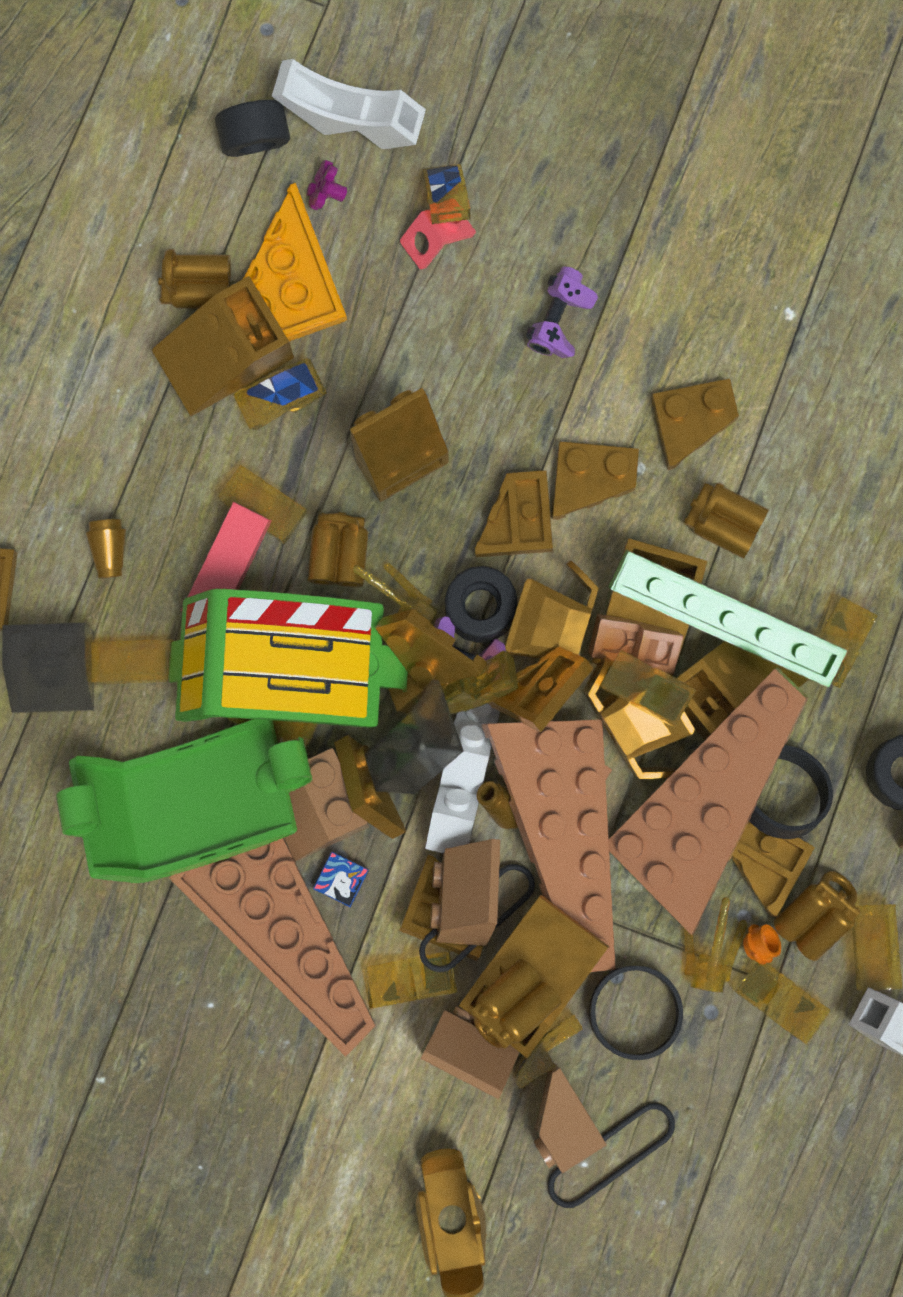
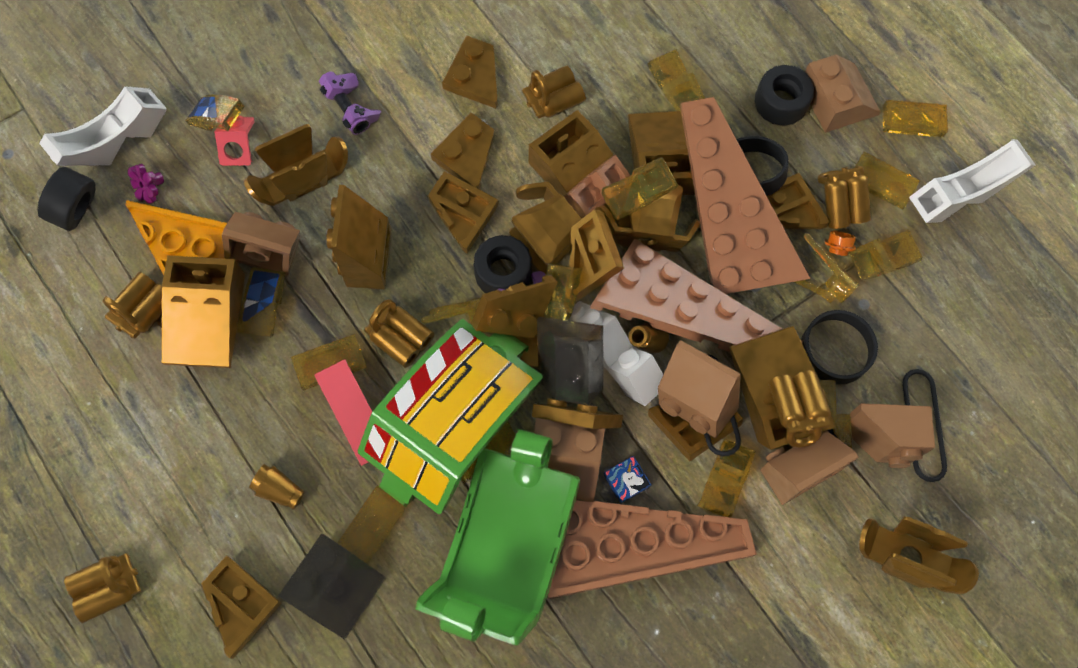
camera: 60 degrees left, 10 degrees down
(336, 347) = (260, 242): none -> medium nougat slope
(446, 300) = (295, 167): none -> pearl gold piece
(727, 618) = (617, 124): tile -> none

